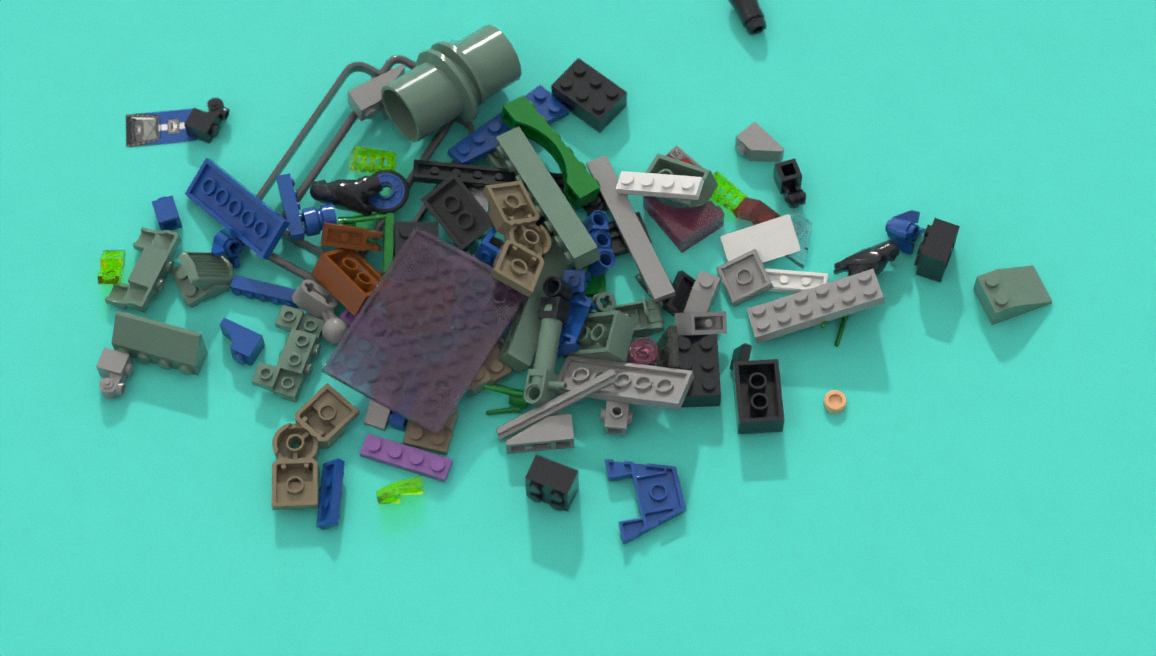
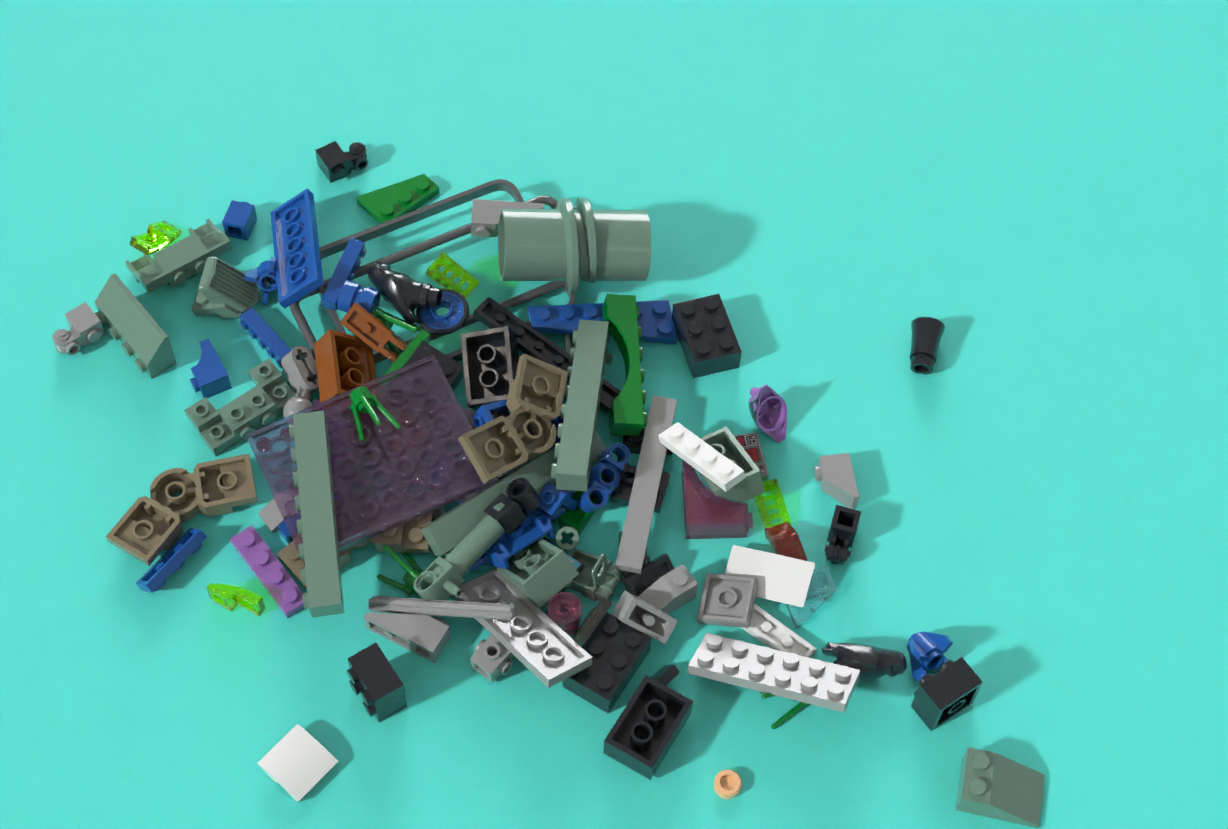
camera: 30 degrees right, 5 degrees down
(157, 128) = (295, 143): sticker -> none
(275, 126) = (398, 198): none -> green wing
(395, 291) = (364, 403): none -> green plant
(424, 391) = (318, 514): none -> sand green brick
(535, 572) = (297, 762): none -> white slope
(656, 492) = (474, 762): blue wing -> none
(675, 125) = (769, 412): none -> medium lavender hat

